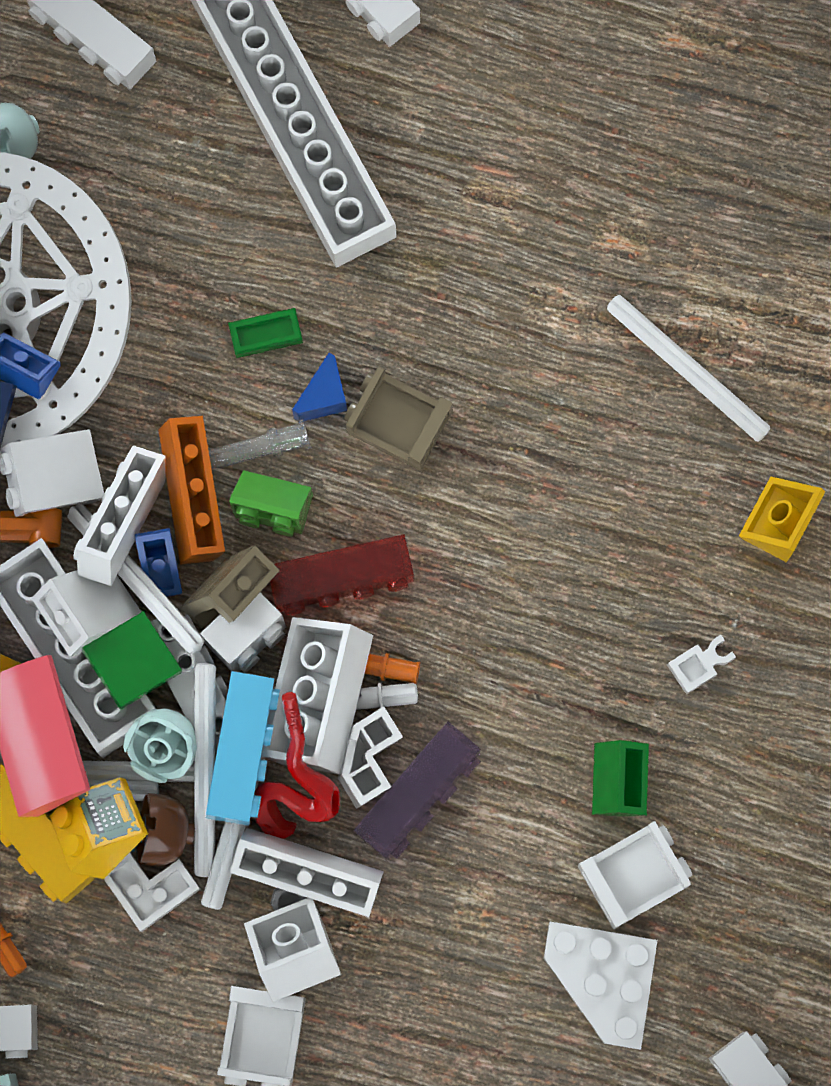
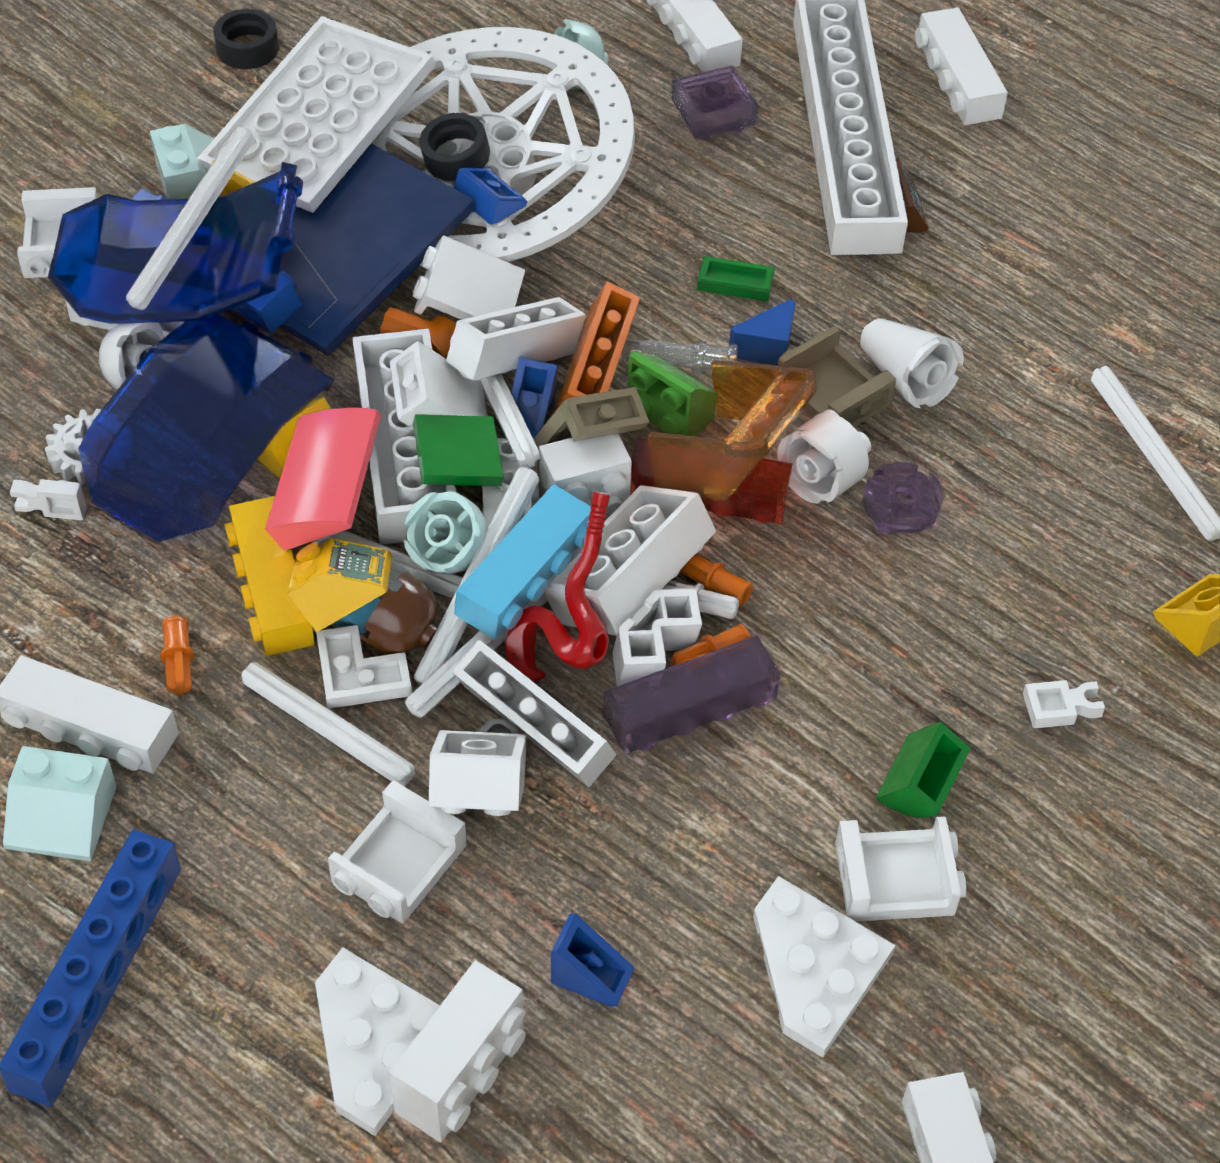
camera: 20 degrees right, 25 degrees down
(148, 946) = (328, 724): none -> white axle
(159, 113) = (714, 102): none -> clear purple brick
(374, 493) = (765, 402): none -> clear orange windscreen
(379, 171) = (914, 210): none -> reddish brown slope
(413, 740) = (711, 643): none -> orange axle
(427, 513) = (825, 457): none -> white brick
(448, 1062) = (588, 963): none -> blue slope
(453, 369) = (917, 359): none -> white cone
(507, 497) = (899, 516): none -> clear purple plate

